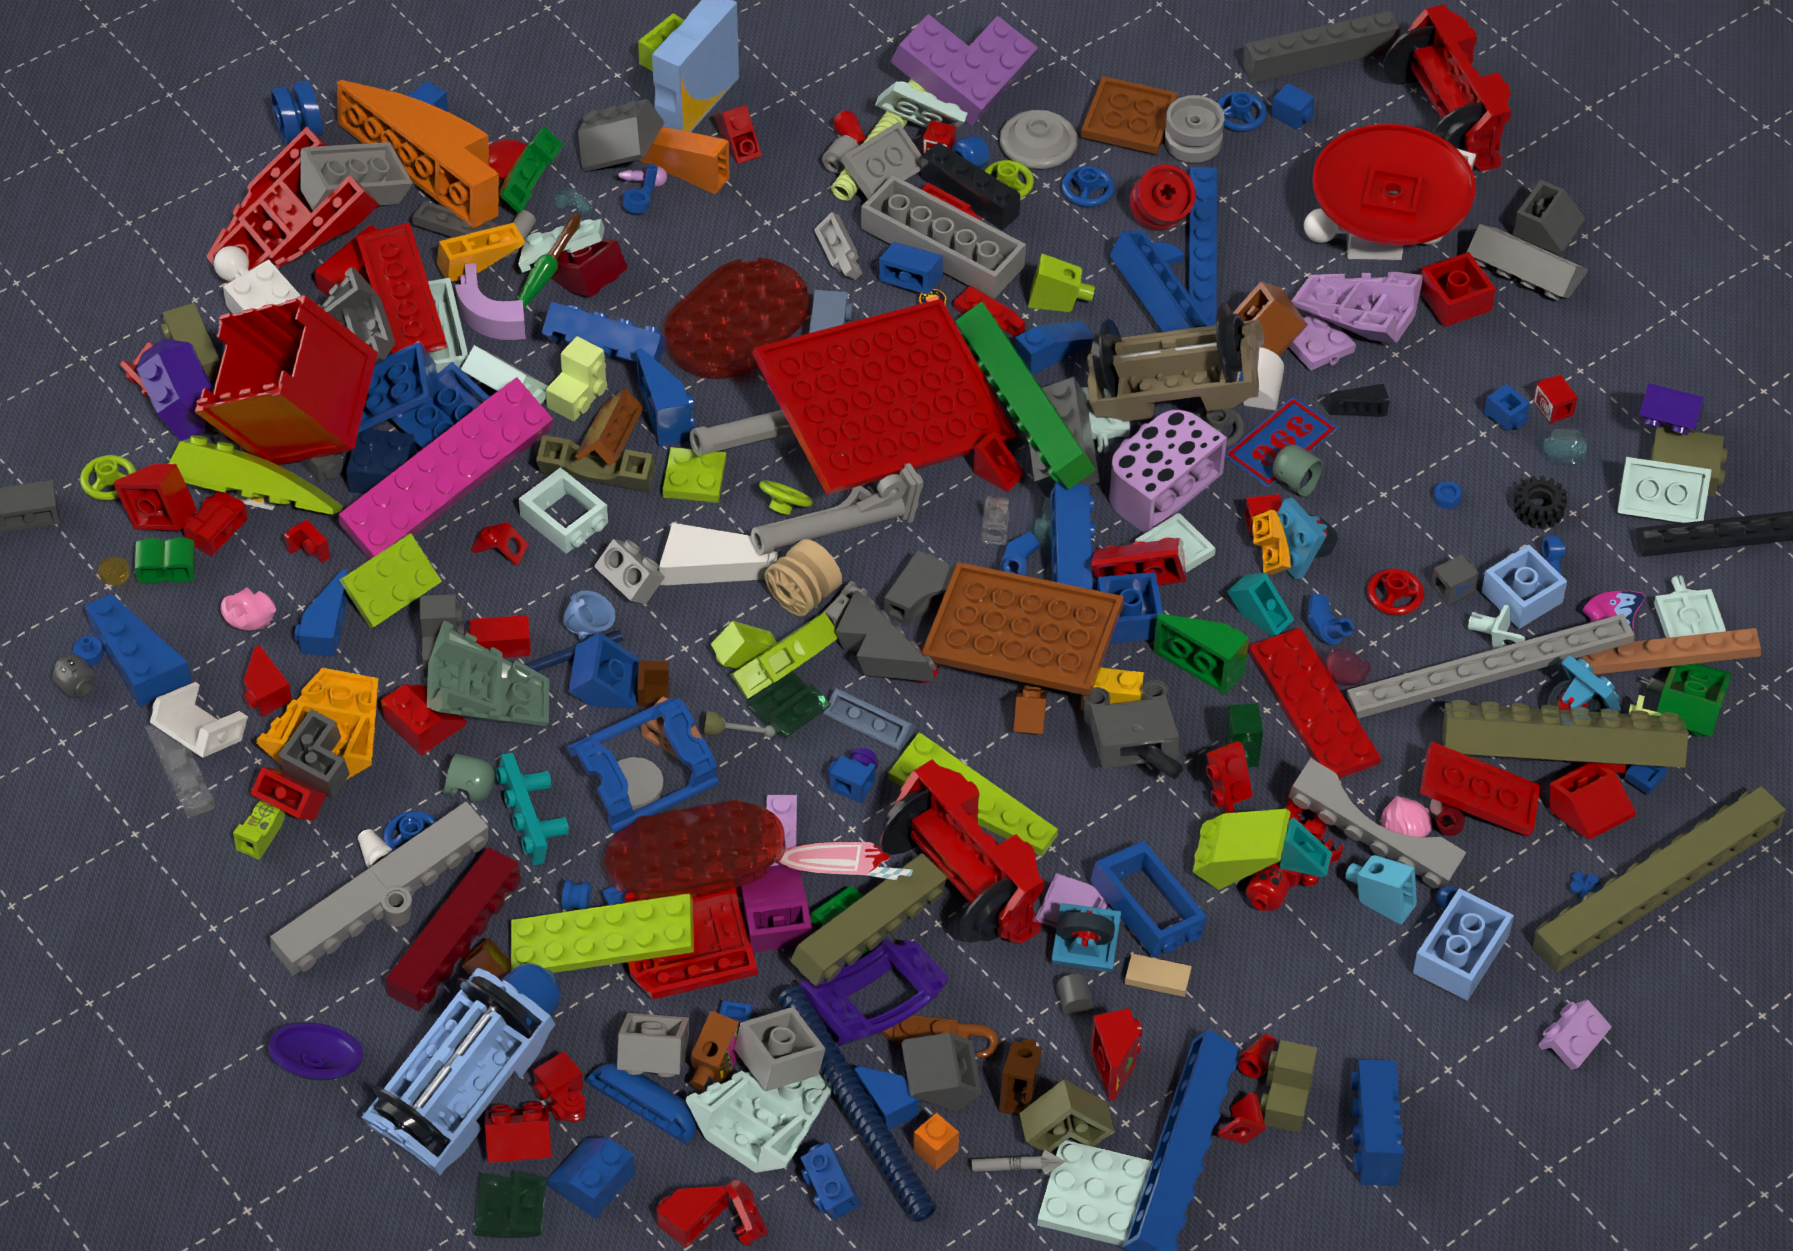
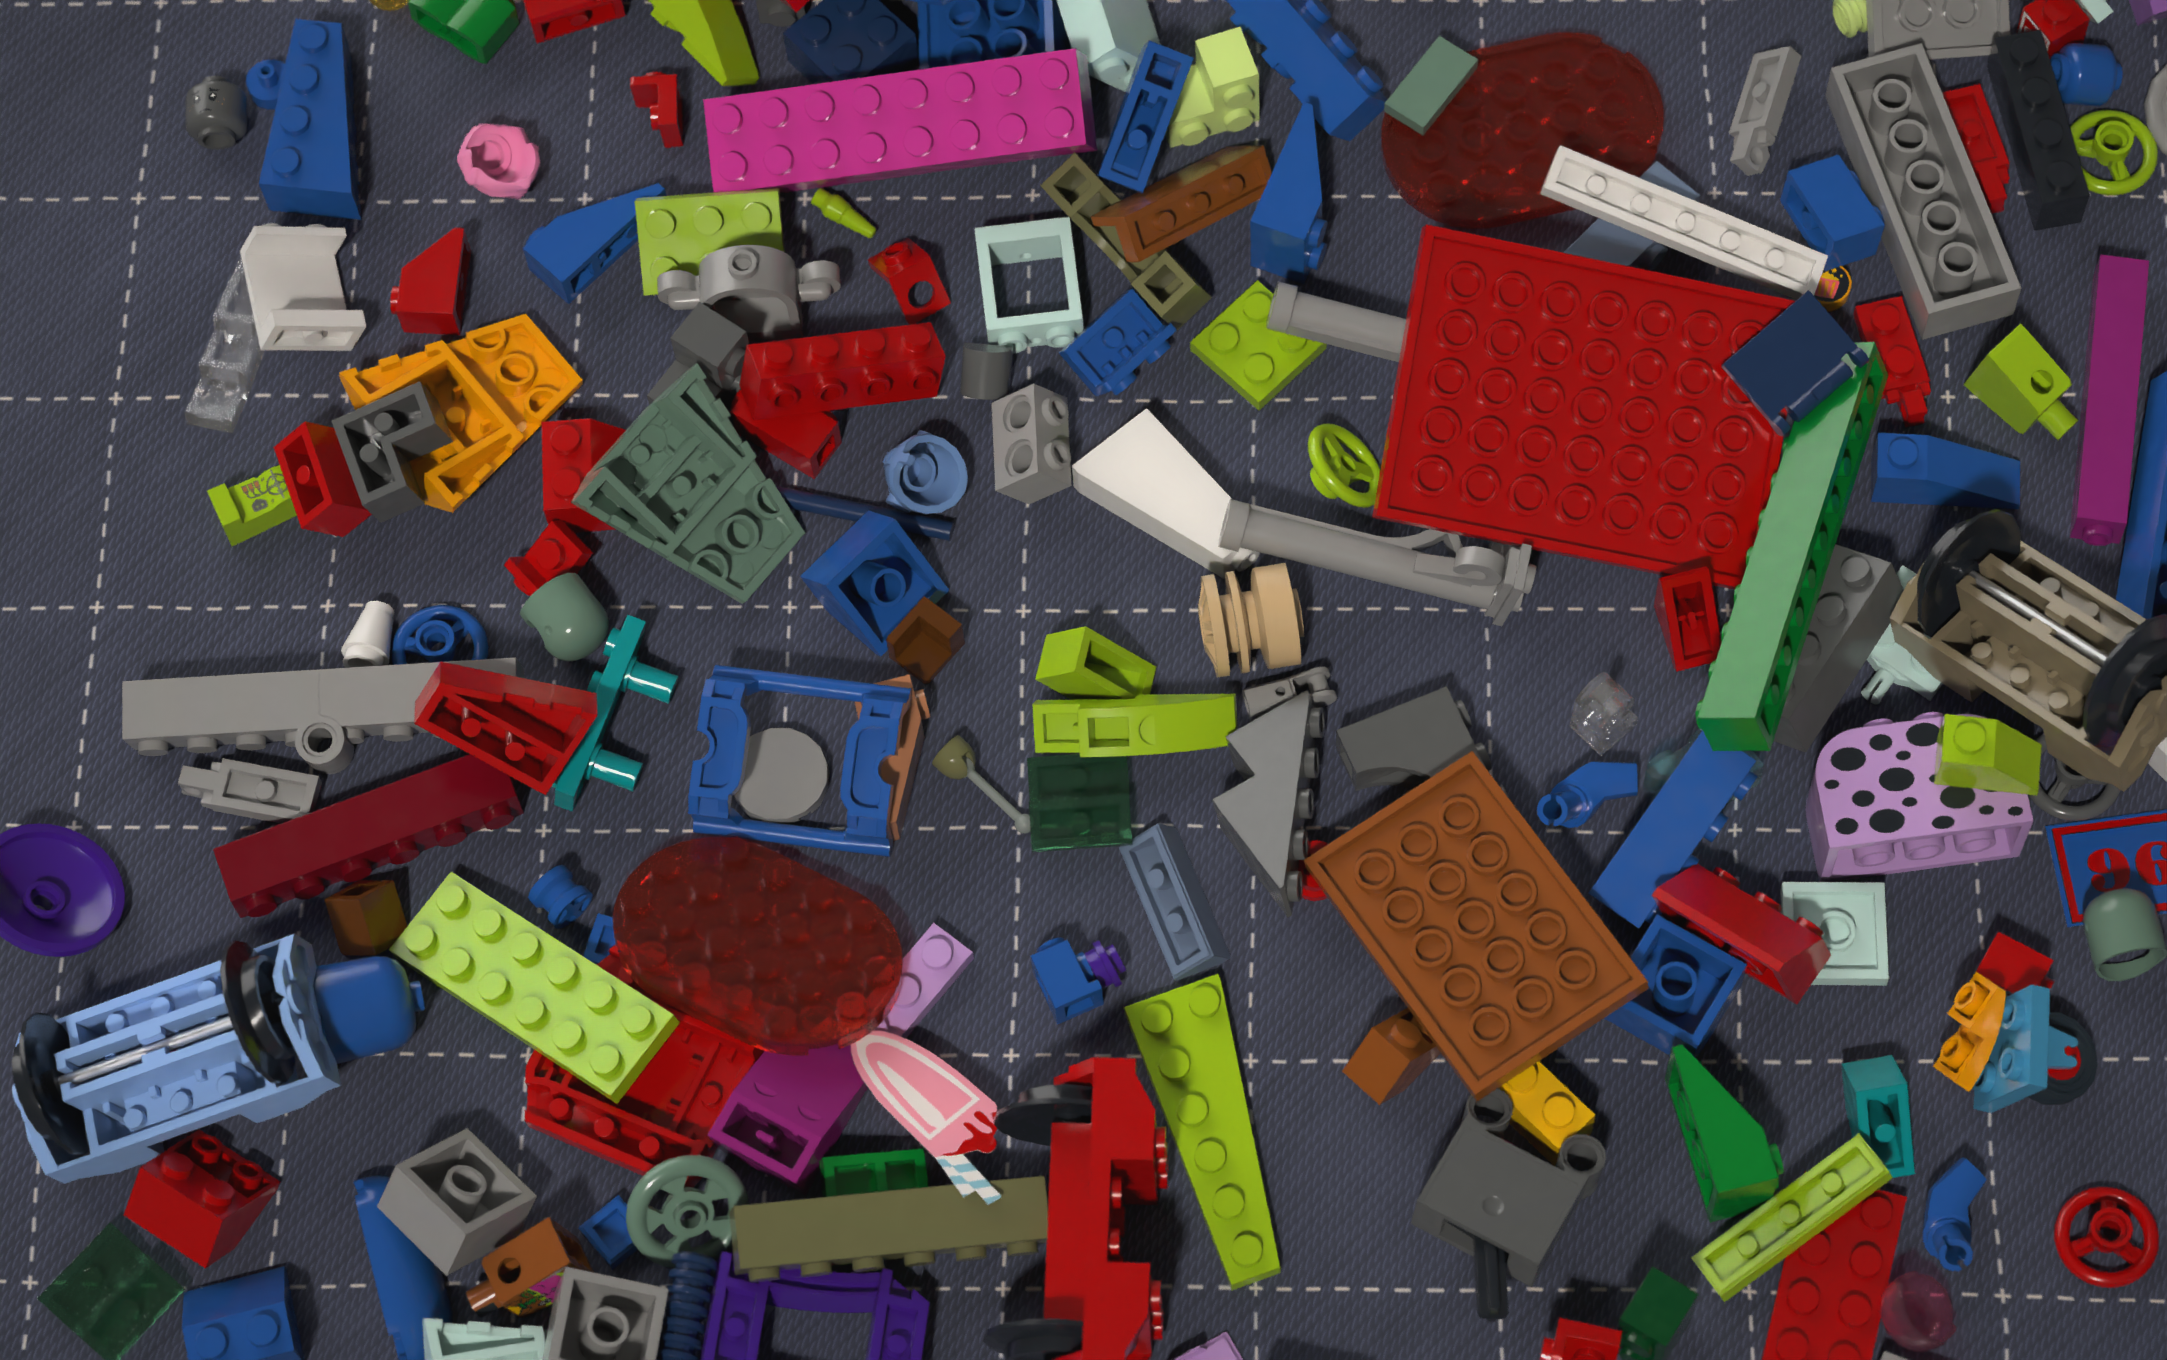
camera: 45 degrees right, 15 degrees up
(374, 950) = (252, 790): none -> light grey hinge
(431, 576) = (752, 289): none -> light grey piece
(436, 760) = (552, 555): none -> red bracket
(438, 536) = (841, 212): none -> lime piece
(494, 823) = (507, 720): none -> red wedge
(512, 590) = (841, 370): none -> red brick
(559, 1084) = (305, 1160): red brick -> none
(562, 396) = (1144, 115): none -> blue slope
(575, 557) = (986, 371): none -> dark grey brick
(630, 510) = (1117, 345): none -> blue bracket
(680, 319) = (1431, 85): none -> sand green tile
(760, 980) = (671, 1177): none -> sand green plate
(847, 304) = (1683, 224): none -> white plate
(957, 325) = (1794, 362): none -> dark blue piece
(1098, 269) = (2109, 400): none -> magenta brick
(1184, 421) = (1986, 756): none -> lime slope
(1263, 658) = (1791, 1217): none -> lime tile

